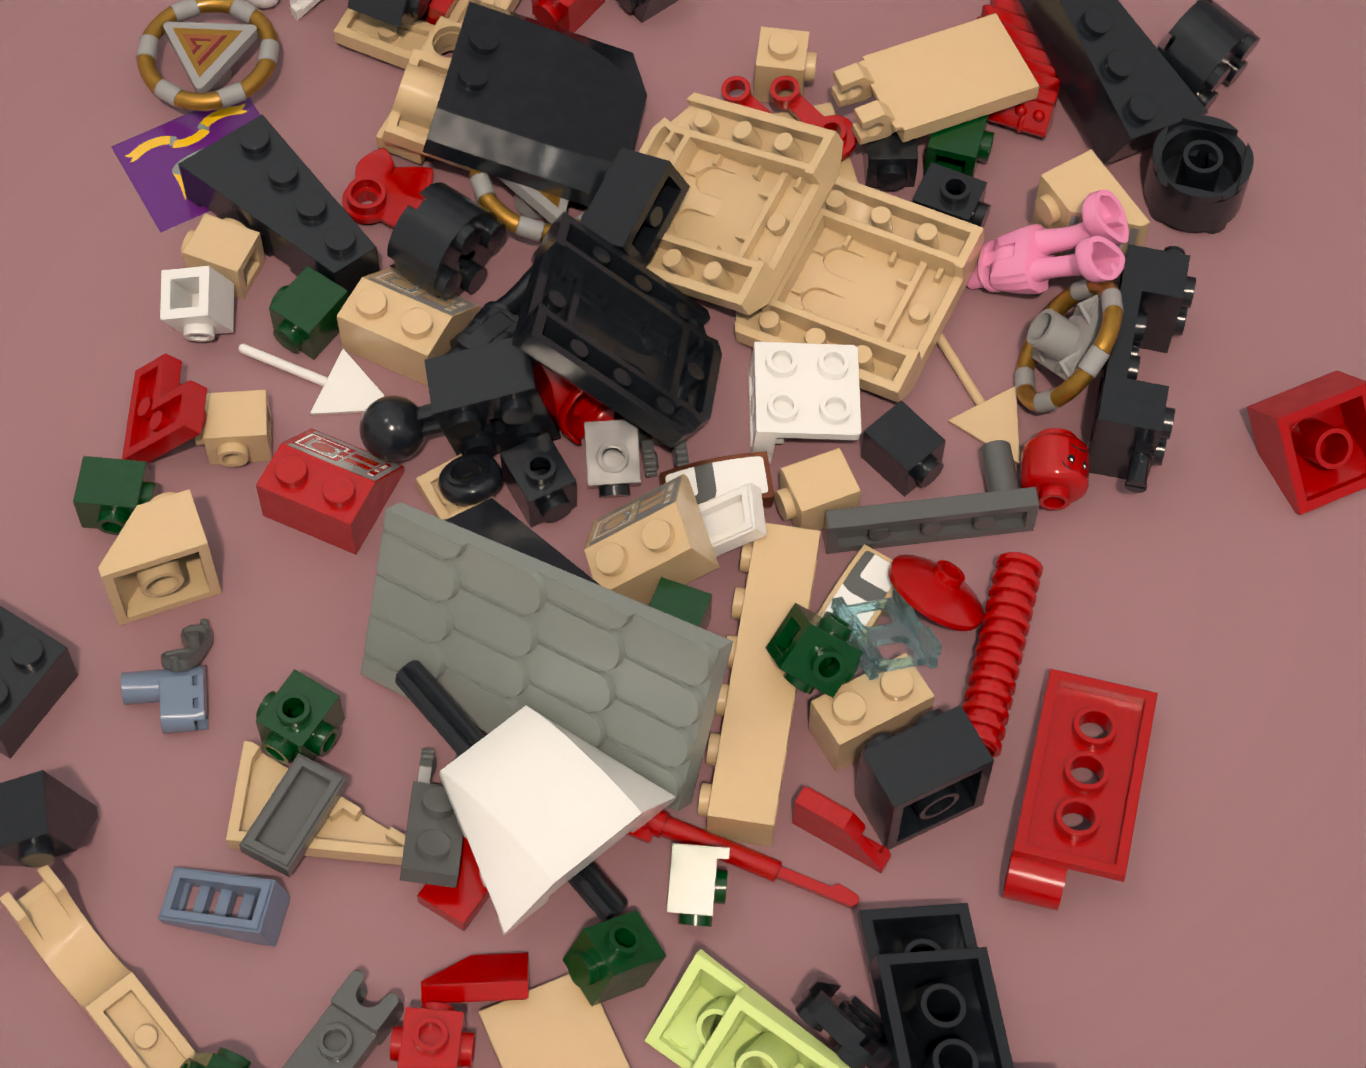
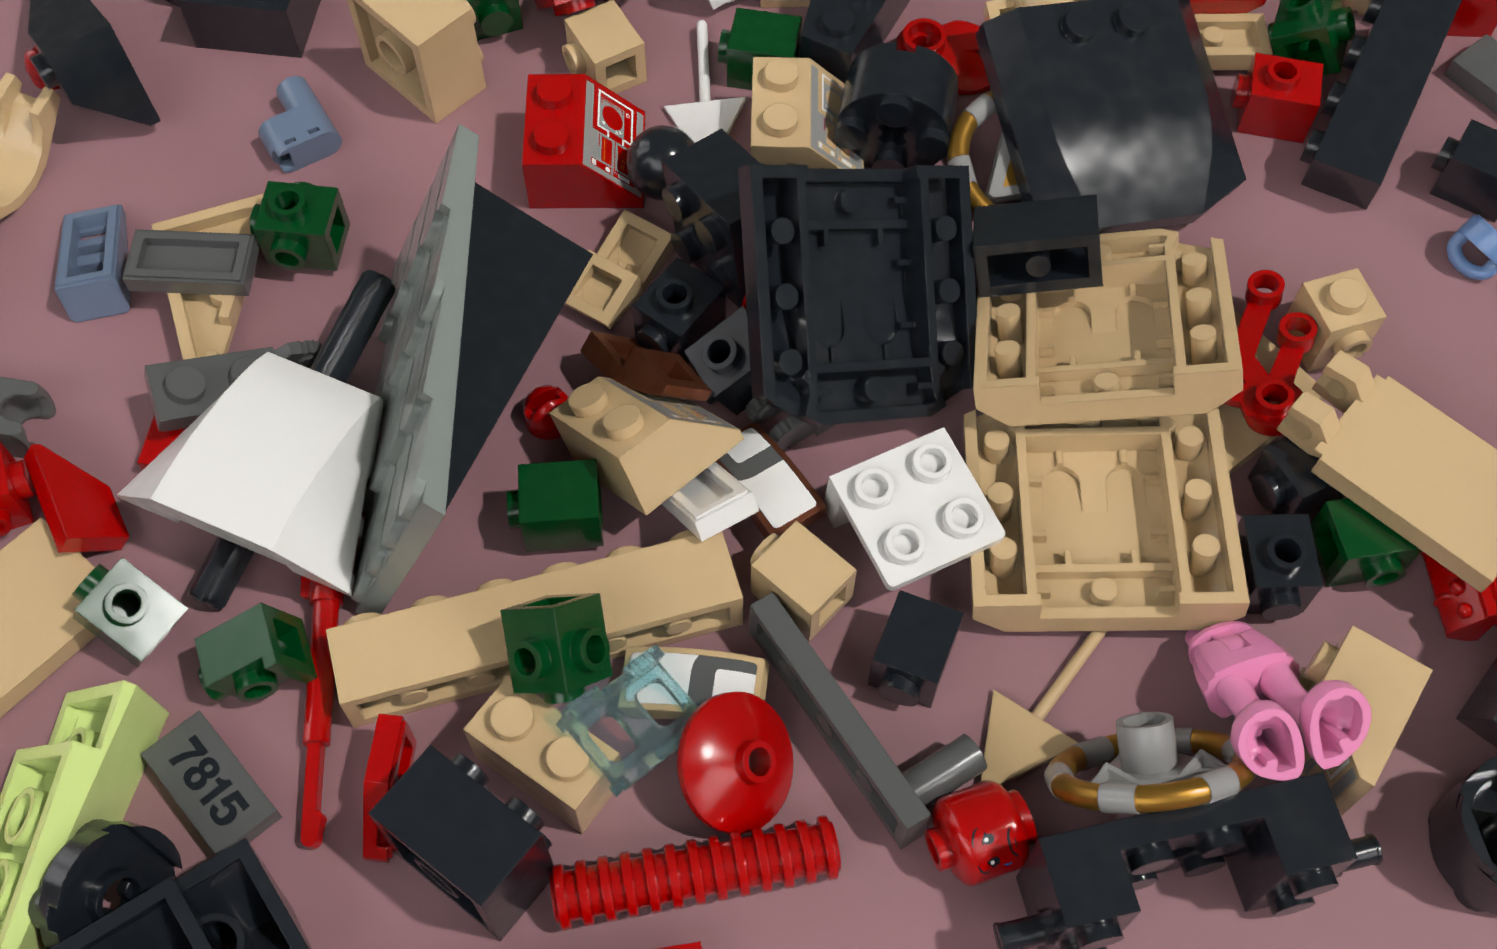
camera: 65 degrees right, 0 degrees up
(196, 642) = (367, 122): dark grey piece -> none
(470, 479) = (640, 250): black piece -> none
(601, 512) = (643, 368): none -> copper slope
(780, 952) = (210, 784): none -> dark grey tile

